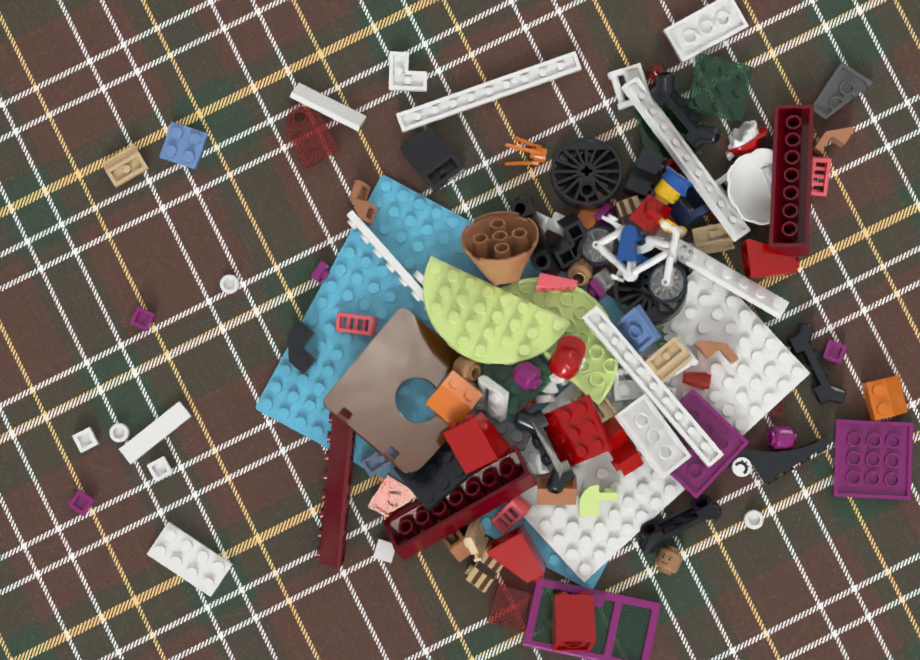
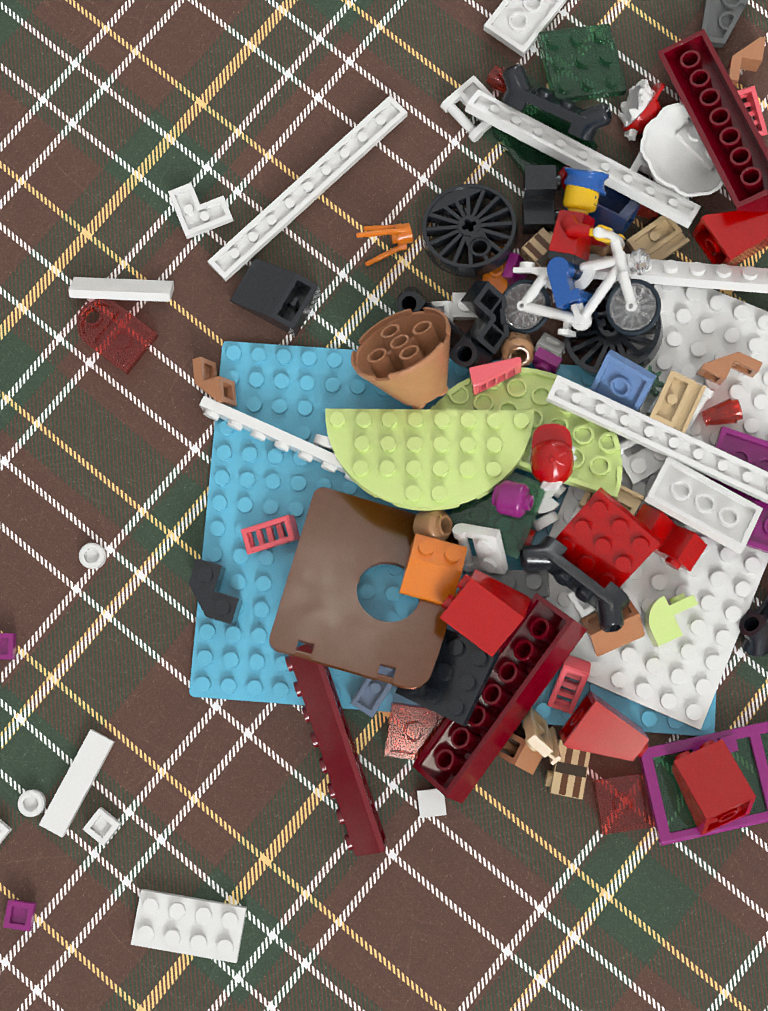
camera: 15 degrees left, 5 degrees down
(321, 272) = (199, 490): magenta plate -> none

